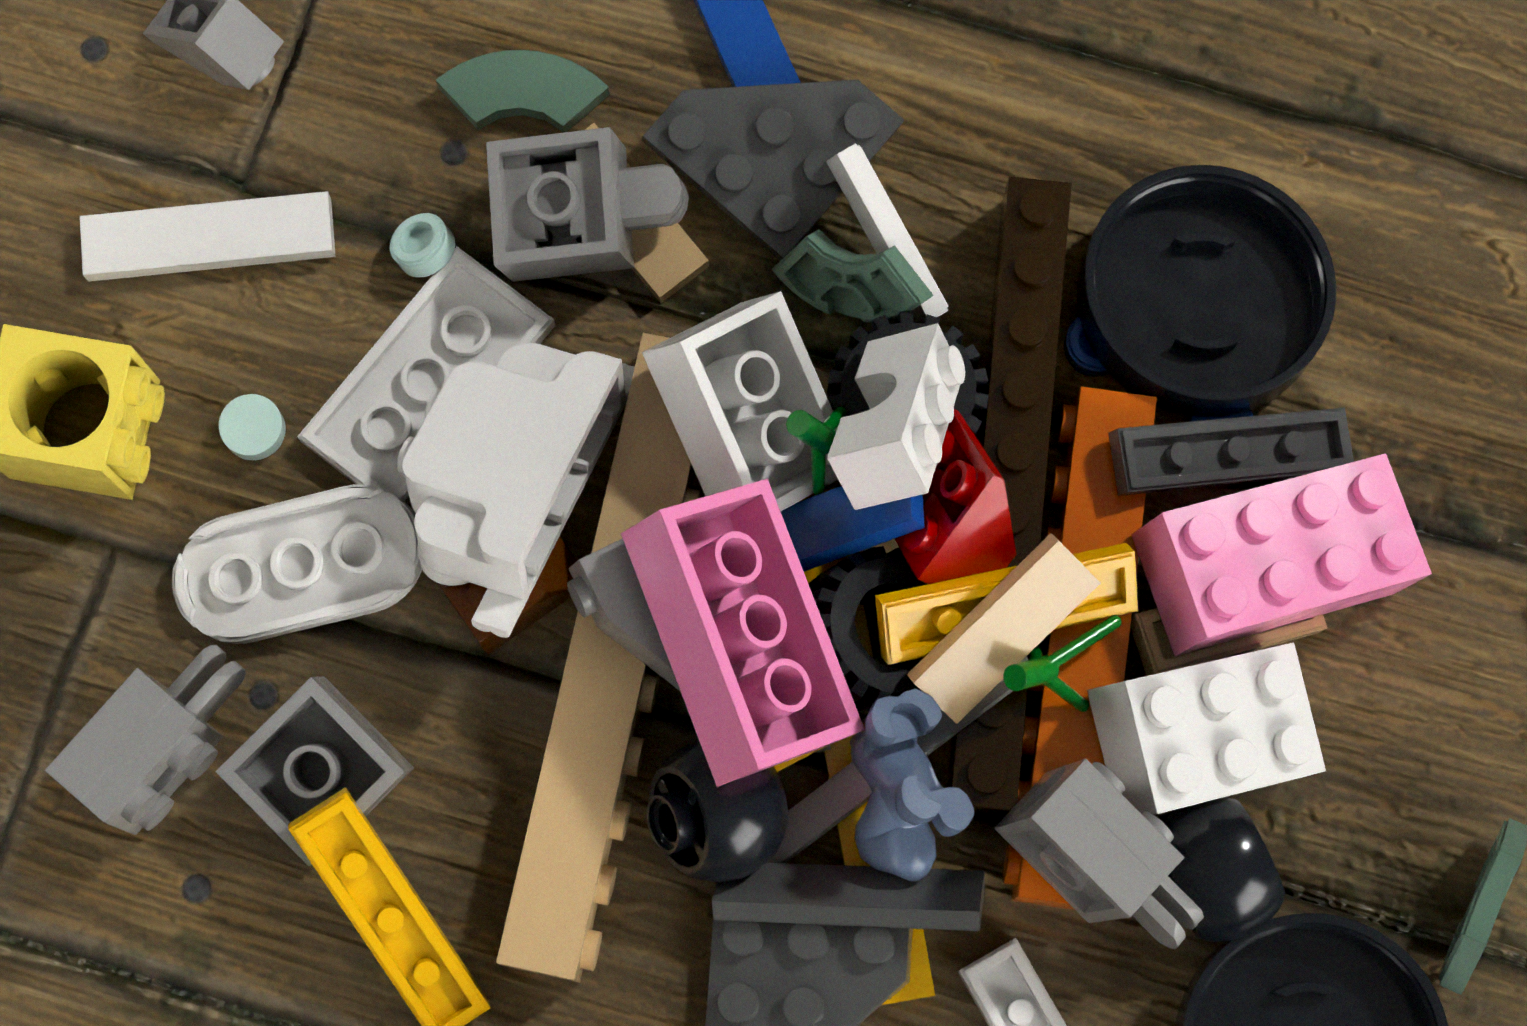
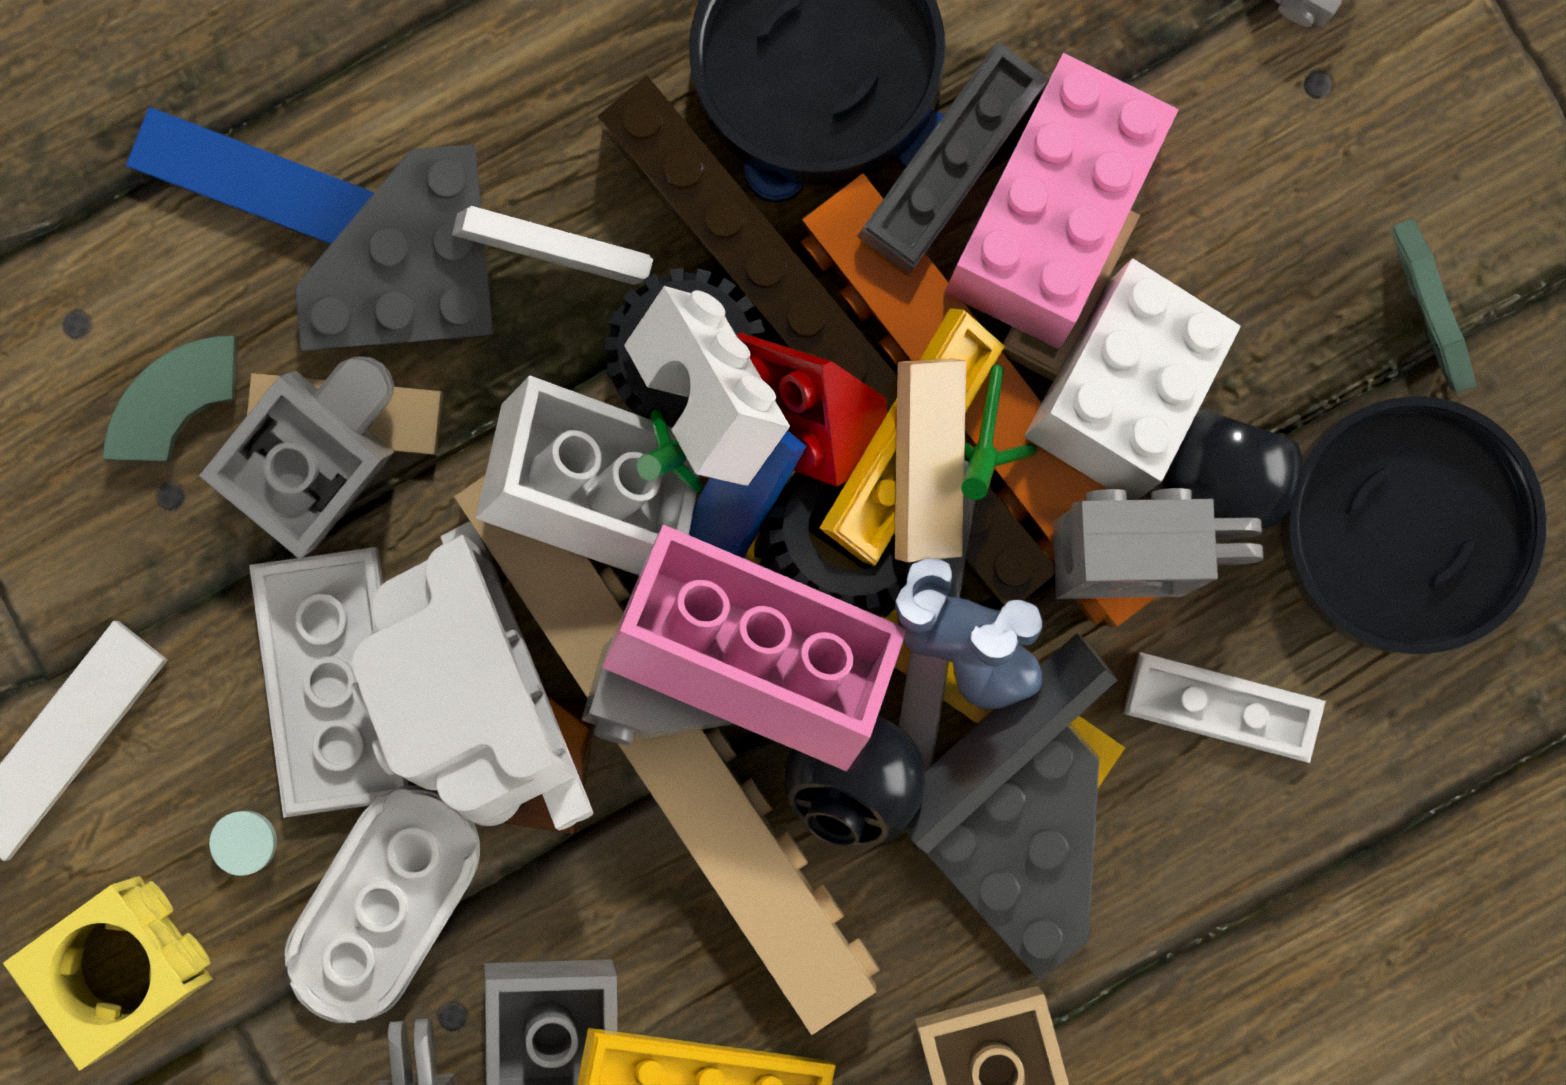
camera: 40 degrees left, 10 degrees up
(422, 245) = (224, 589): light aqua tile -> none
(851, 282) = (569, 302): sand green tile -> none

